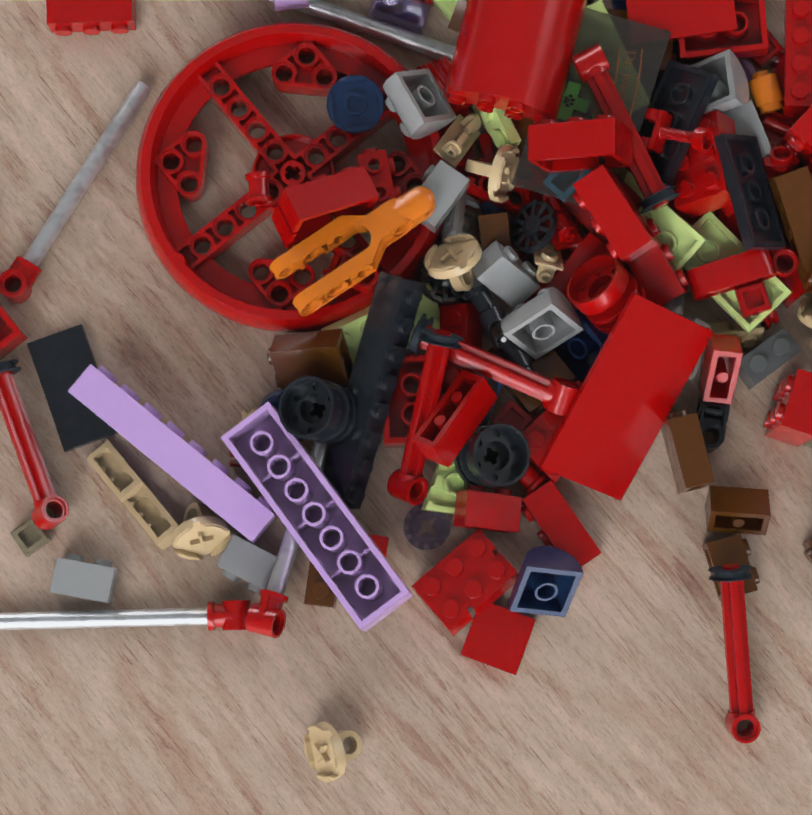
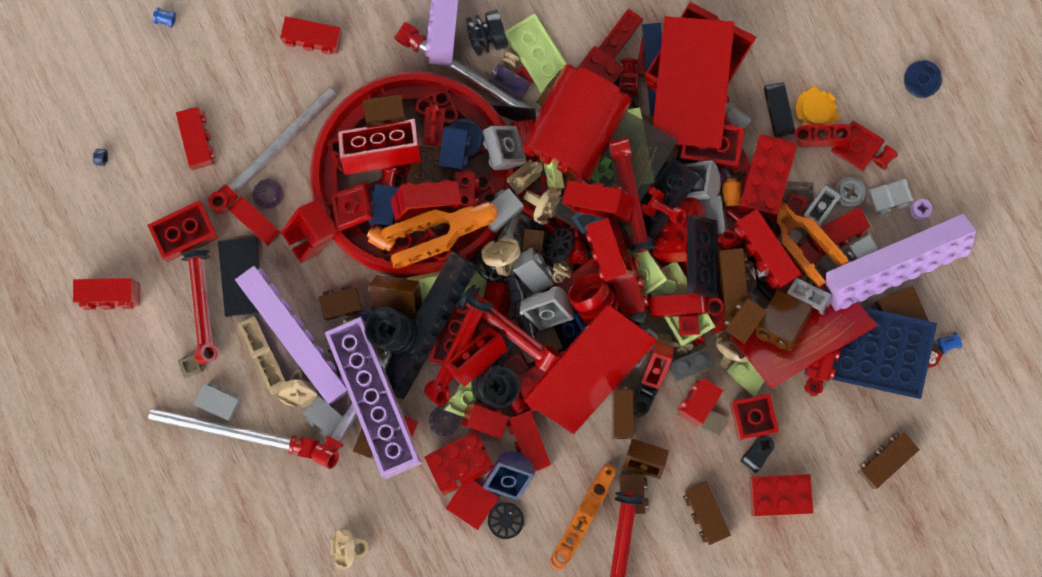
camera: 15 degrees right, 0 degrees up
(74, 301) = (254, 221): none -> red beam
(95, 263) = (273, 200): none -> clear purple gear
(160, 284) = (310, 223): none -> red piece
(215, 242) = (351, 206): none -> red tile
(228, 91) = (384, 110): none -> reddish brown brick
(231, 391) = (340, 303): none -> reddish brown brick
(235, 144) = (379, 146): none -> red brick
(261, 238) = (381, 205): none -> dark blue brick
(265, 281) = (376, 238): none -> orange brick
(306, 96) = (433, 125): none -> red hinge
(315, 154) = (428, 168): none -> reddish brown tile
(345, 122) = (453, 149): none -> dark blue brick
(422, 53) = (516, 113): none -> black sticker
(553, 651) = (505, 520): none -> black wheel
(668, 619) = (584, 515): none -> orange piece

